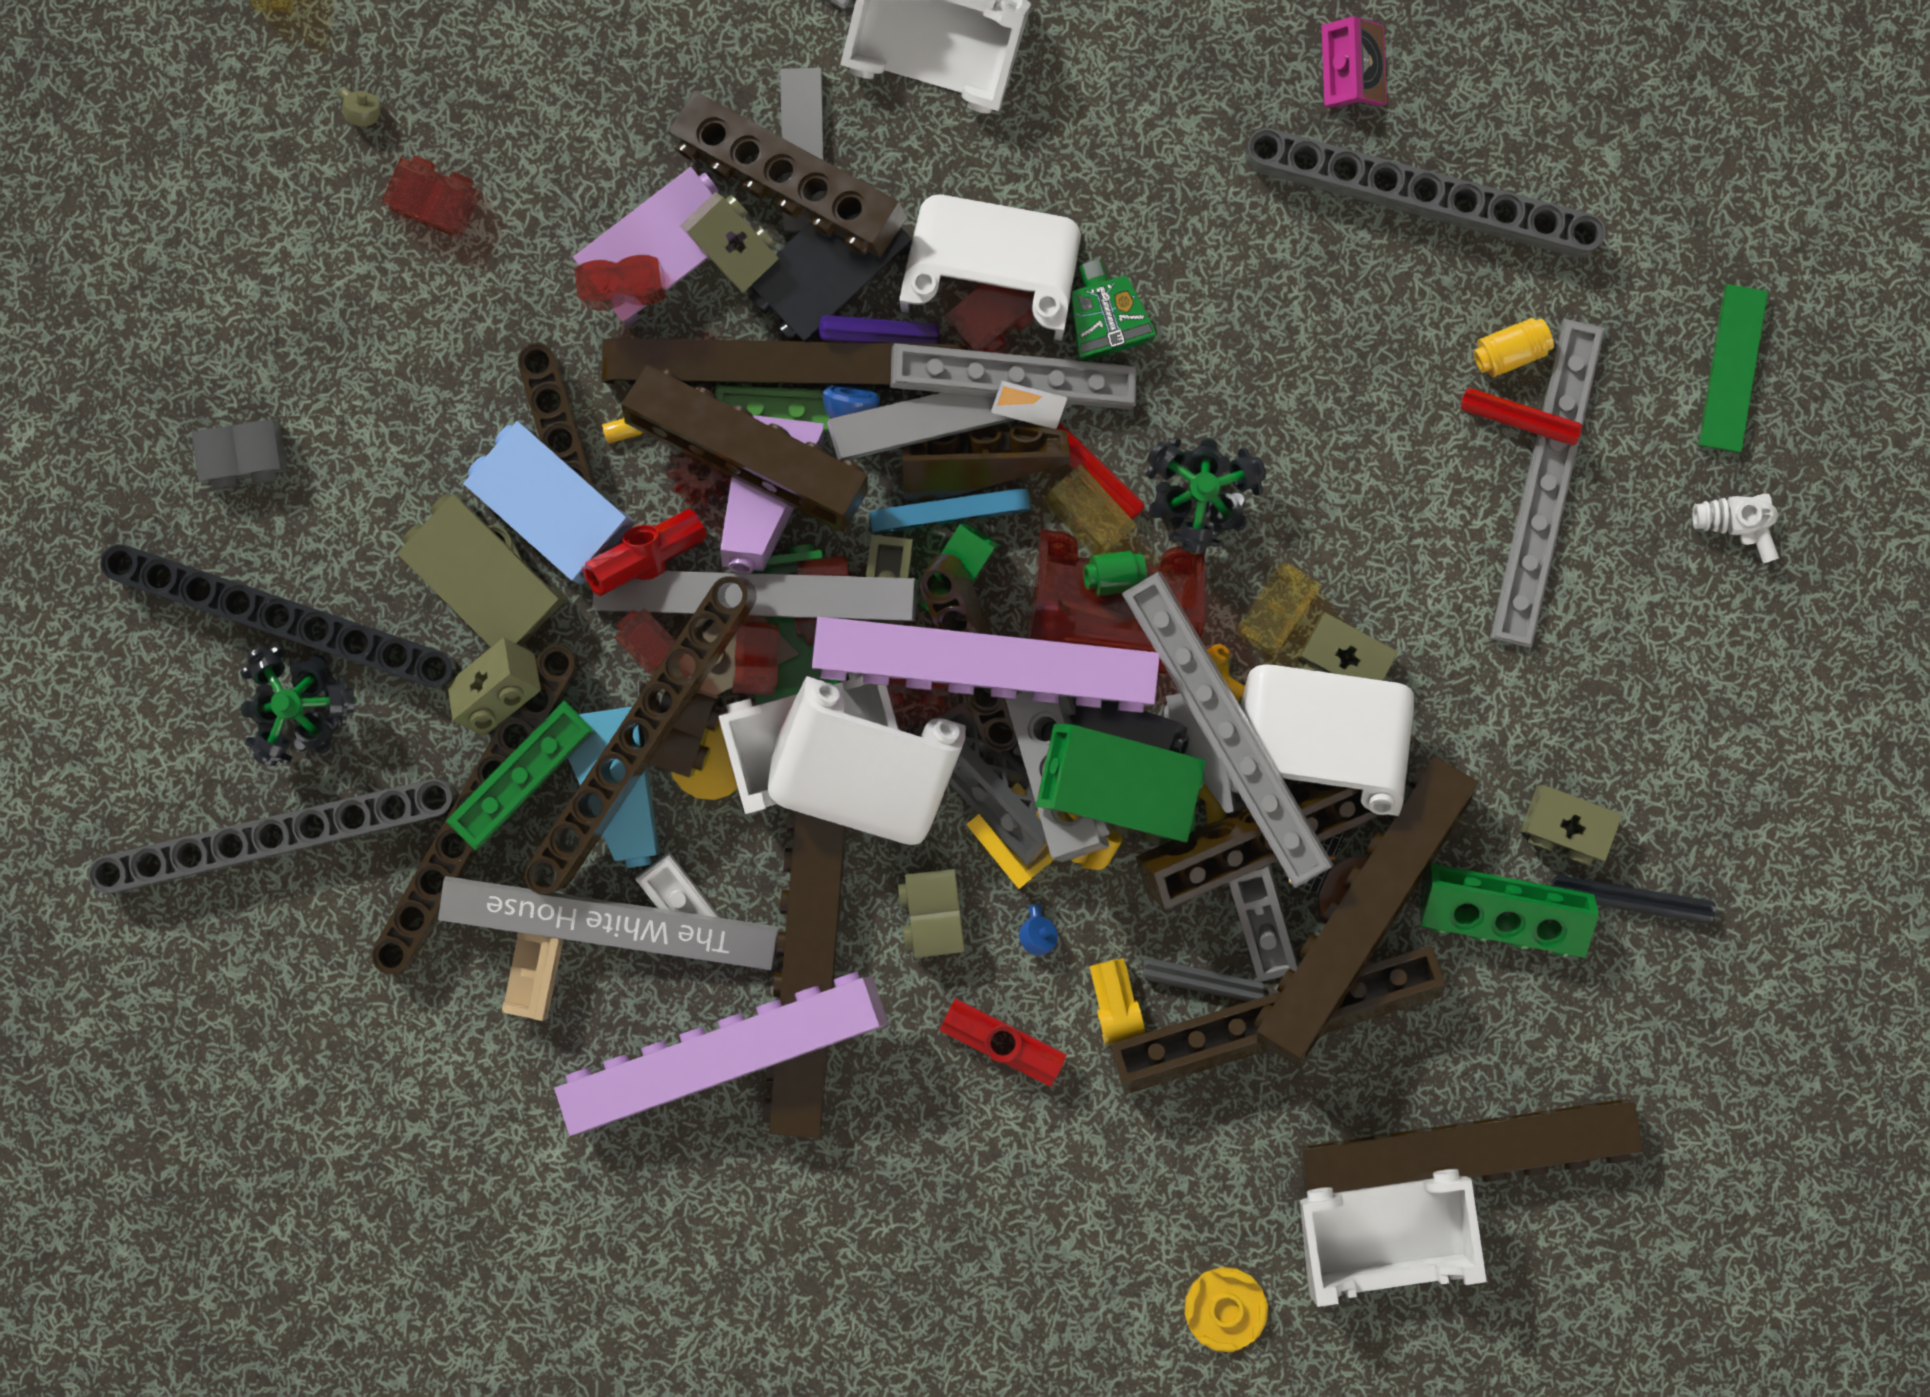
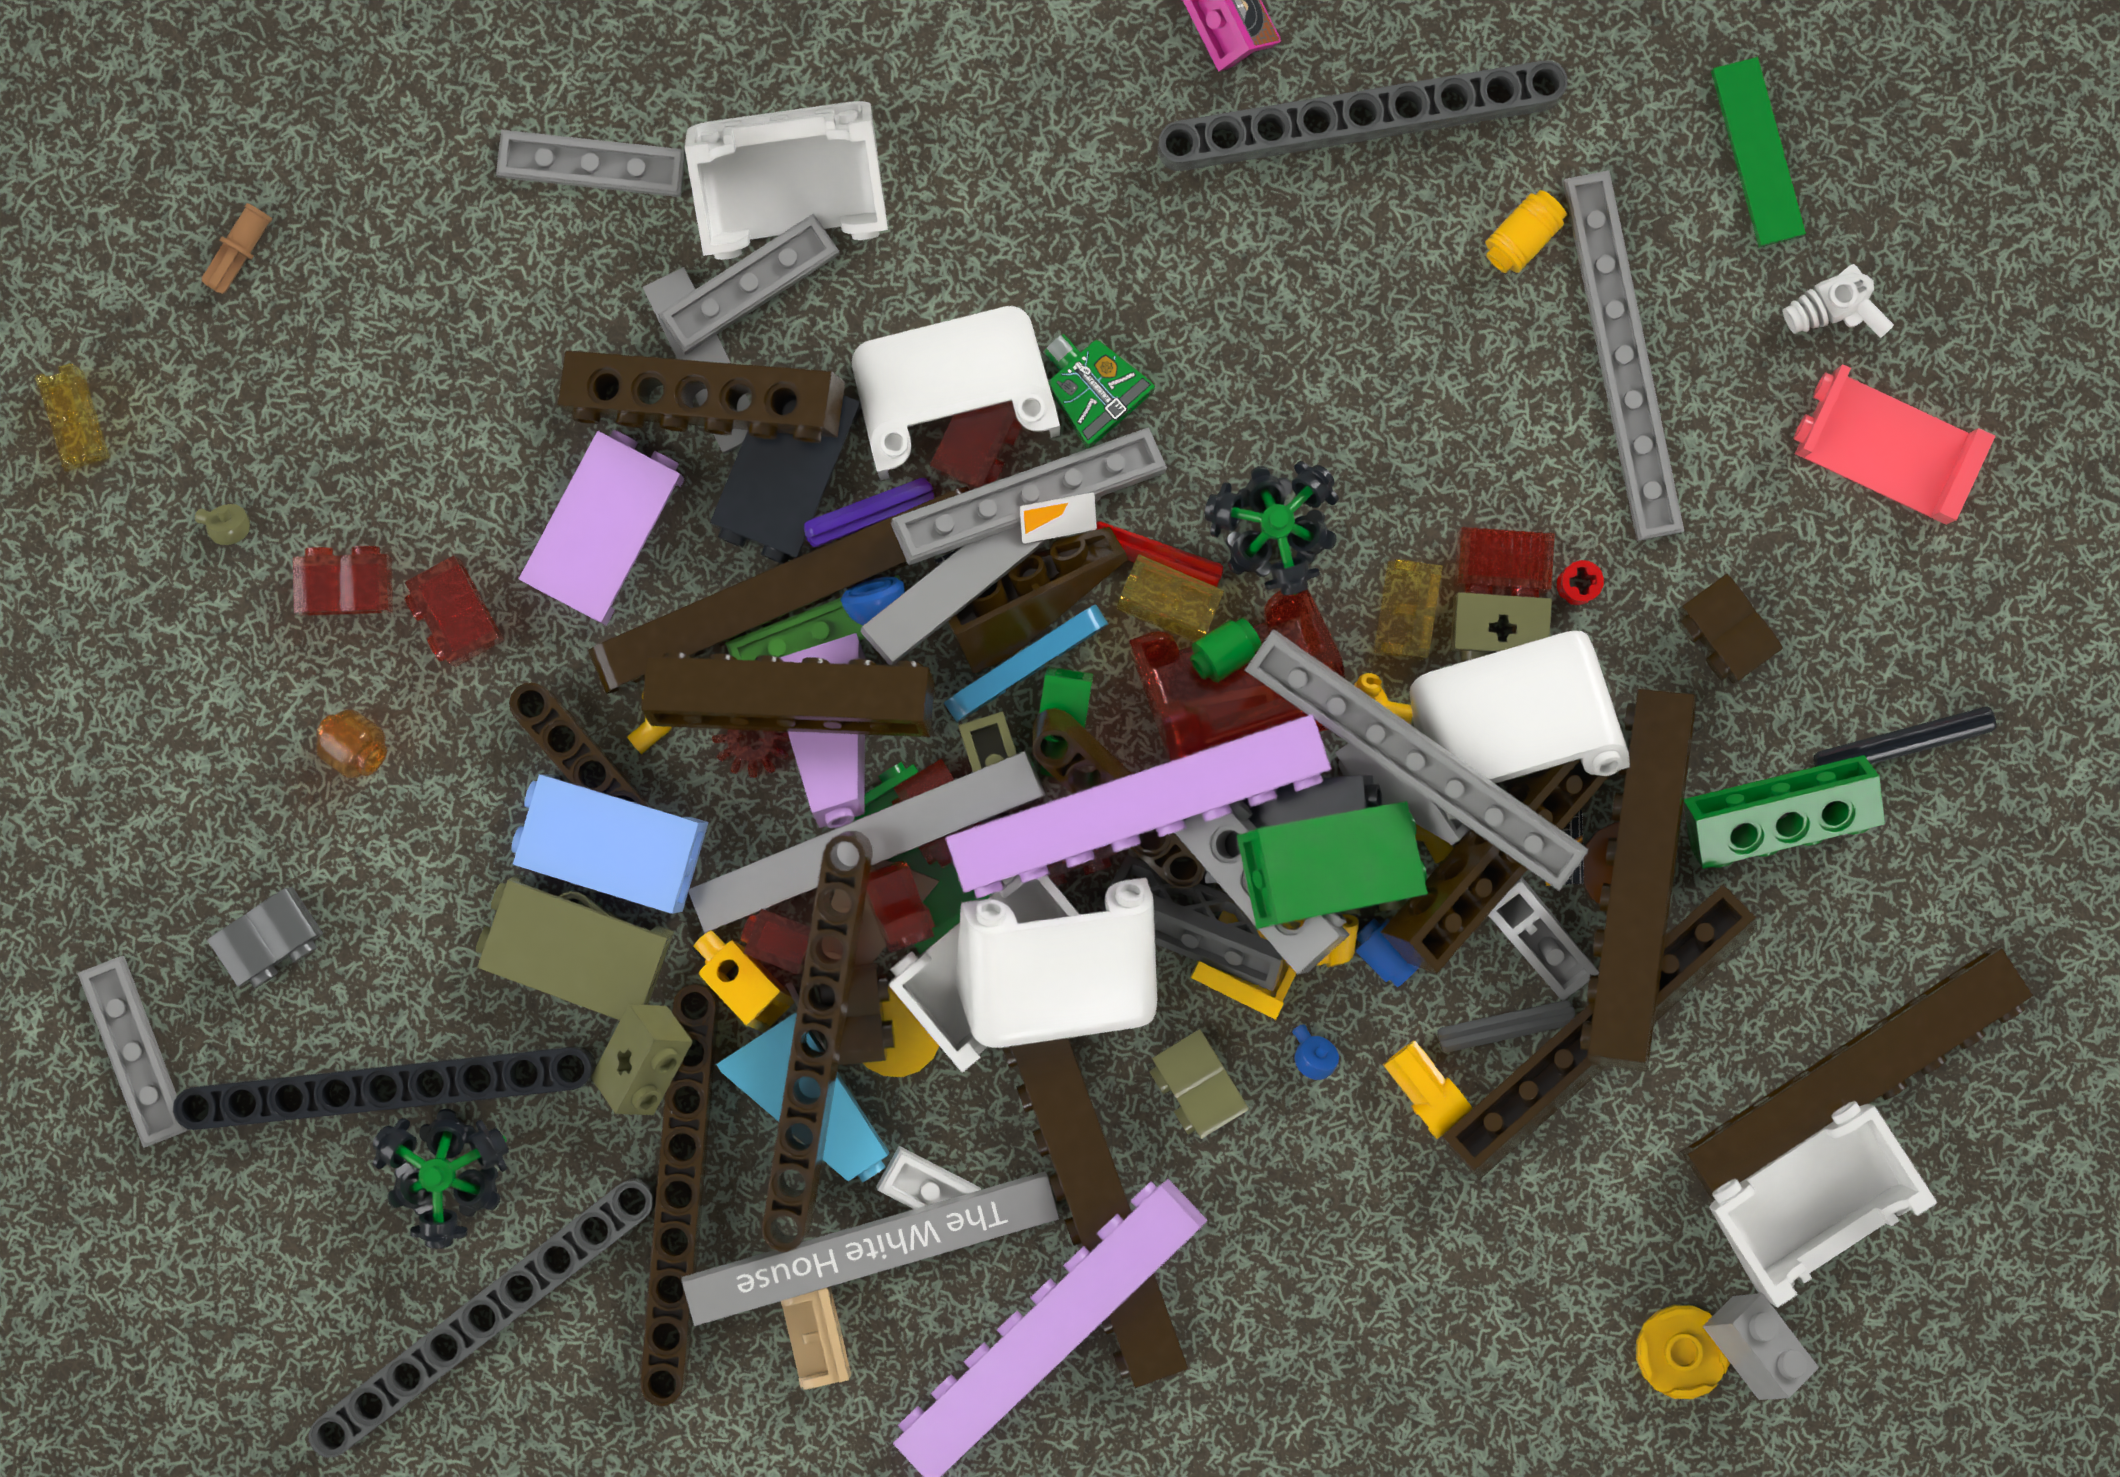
camera: 25 degrees left, 0 degrees up
(92, 494) = (132, 1049): none -> light grey tile
(378, 329) = (351, 744): none -> clear orange head
(508, 260) = (452, 611): none -> clear red brick
(520, 775) = (711, 1138): green tile -> none
(606, 670) = (754, 992): none -> yellow torso
(631, 280) = (571, 591): clear red brick -> none
(644, 552) = (732, 850): red piece -> none
(708, 230) = (648, 483): olive brick -> none
(867, 105) = (749, 284): none -> light grey tile
(1028, 1054) = (1361, 1183): red piece -> none
(1128, 877) = (1381, 954): none -> blue brick
(1290, 1333) = (1760, 1346): none -> light grey brick
(1374, 604) = (1504, 561): none -> clear red brick
(1439, 644) = (1588, 571): none -> red bush
(1521, 416) = (1566, 299): red axle -> none
(1530, 743) = (1728, 629): none -> dark brown brick
(1594, 823) = (1831, 682): olive brick -> none
(1731, 655) = (1891, 447): none -> coral panel

